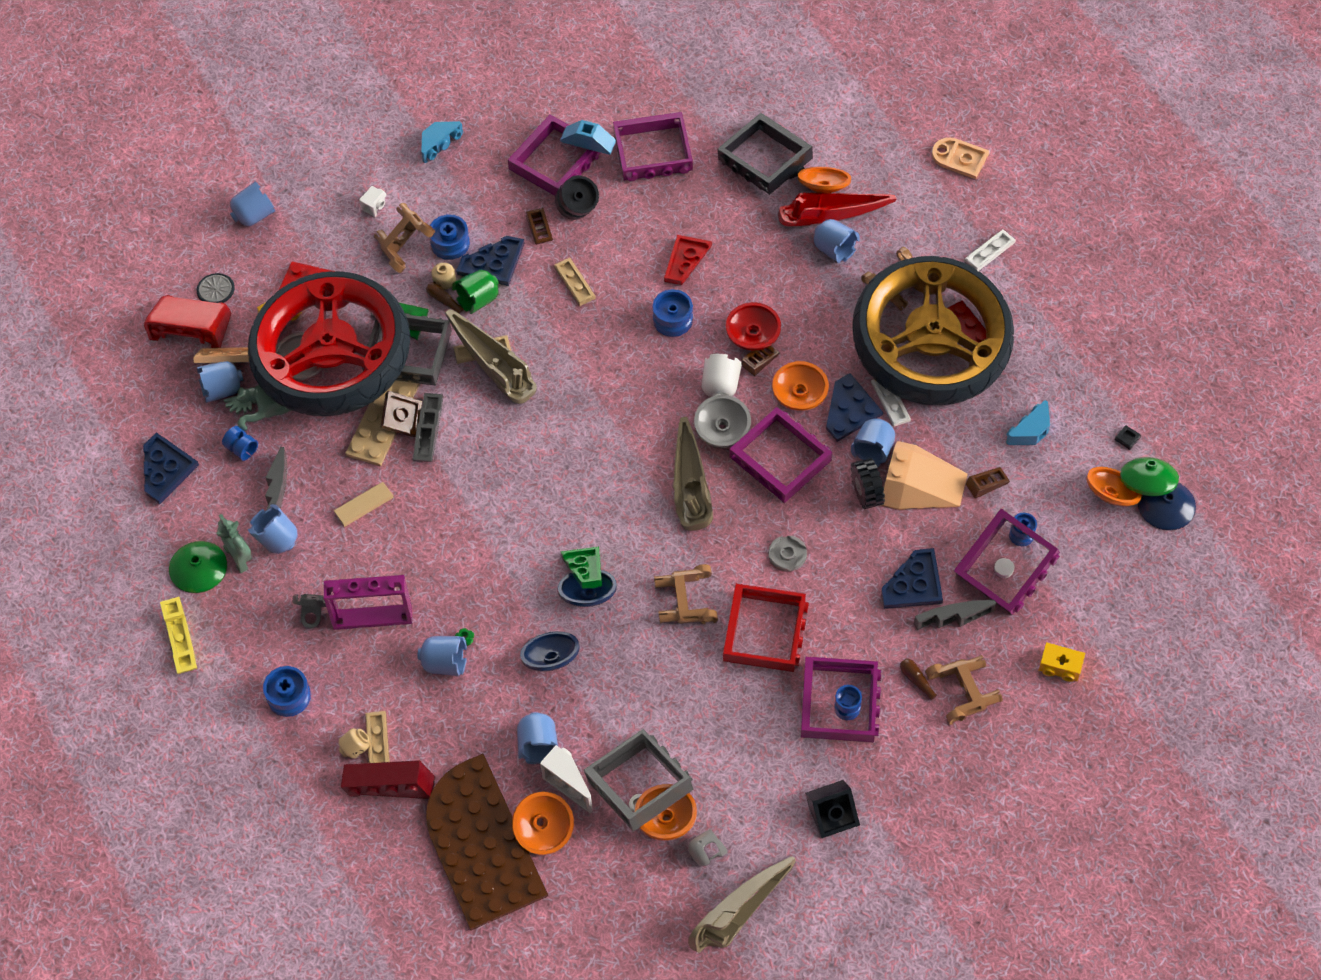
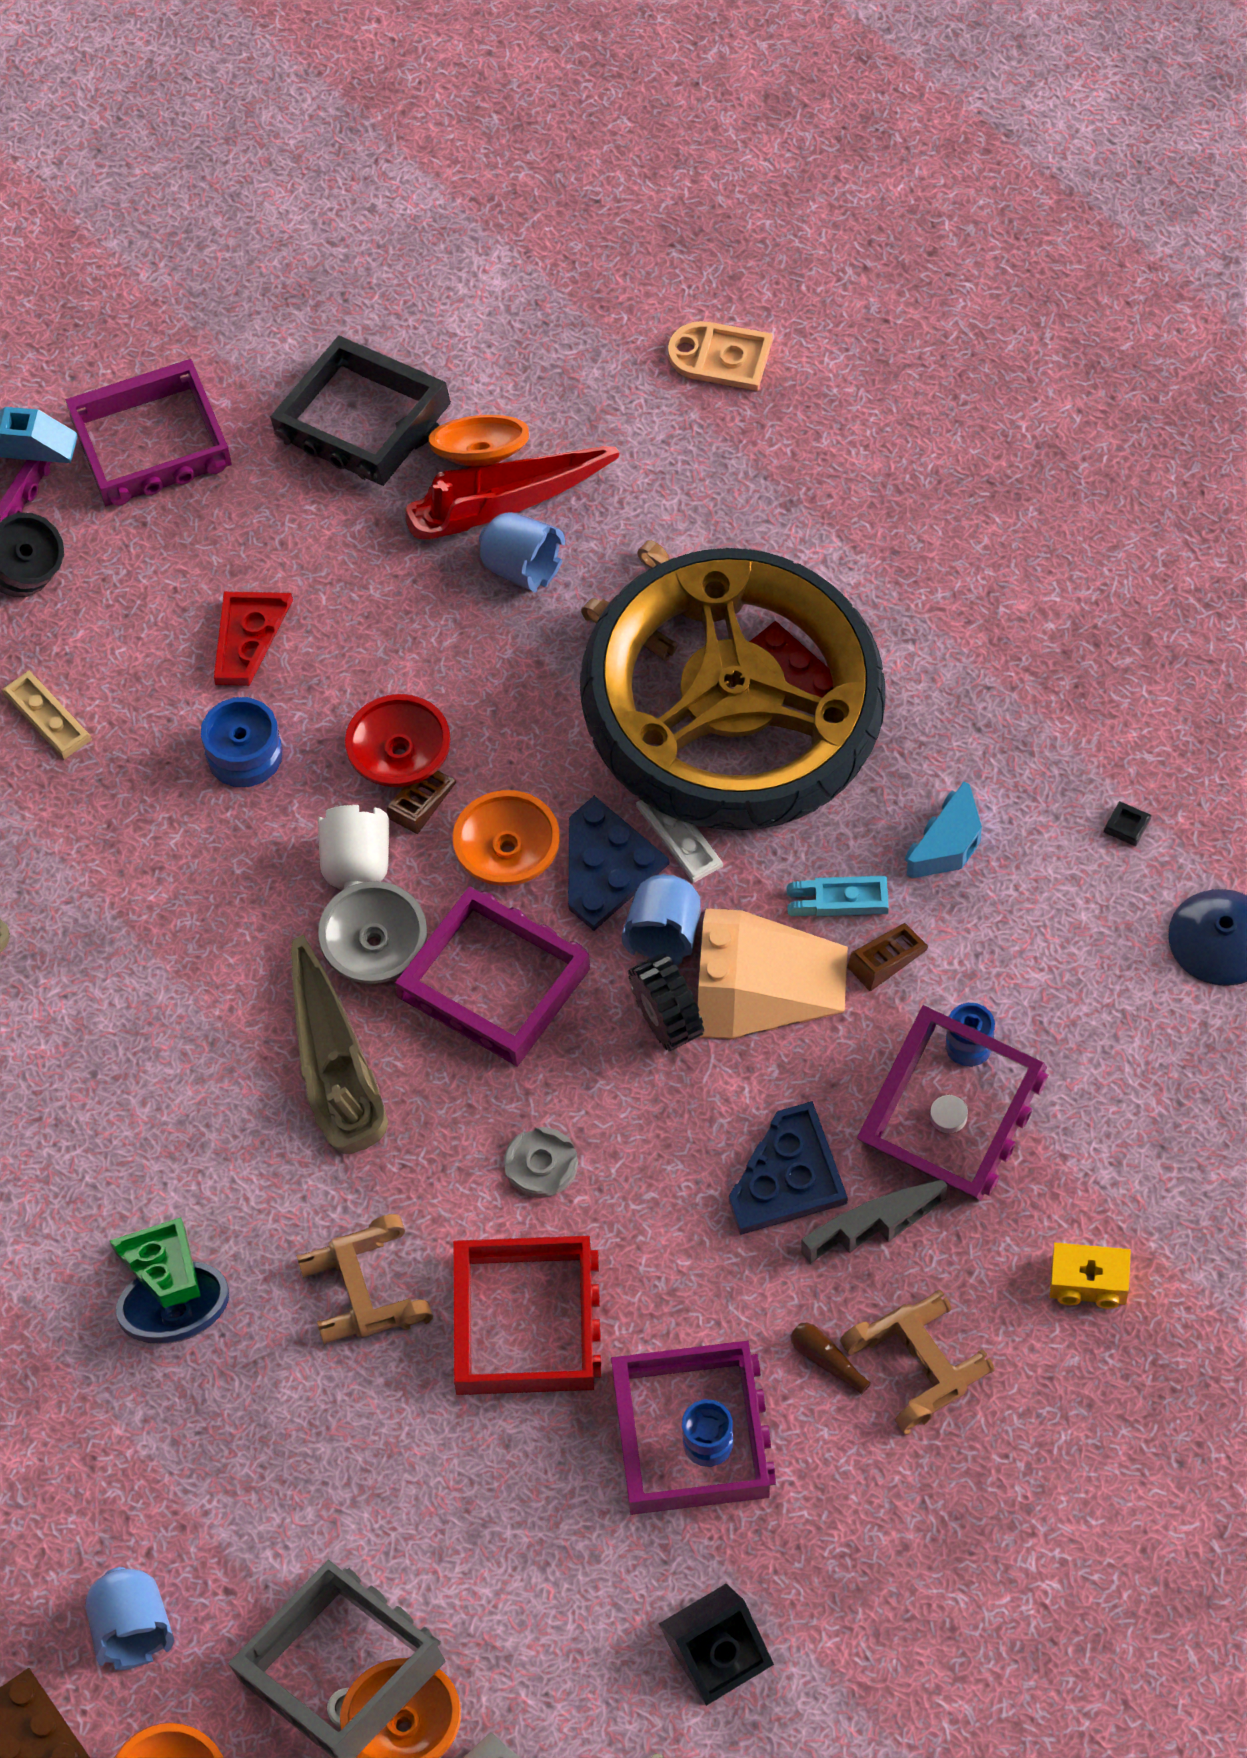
camera: 10 degrees left, 0 degrees up
(550, 651) = (122, 1441): dark blue dish -> none
(562, 773) = (189, 1679): white slope -> none
(968, 447) = (839, 896): none -> medium azure hinge
(990, 250) = (808, 519): white tile -> none
(1109, 488) = (1120, 922): orange dish -> none
(1149, 476) = (1181, 890): green dish -> none

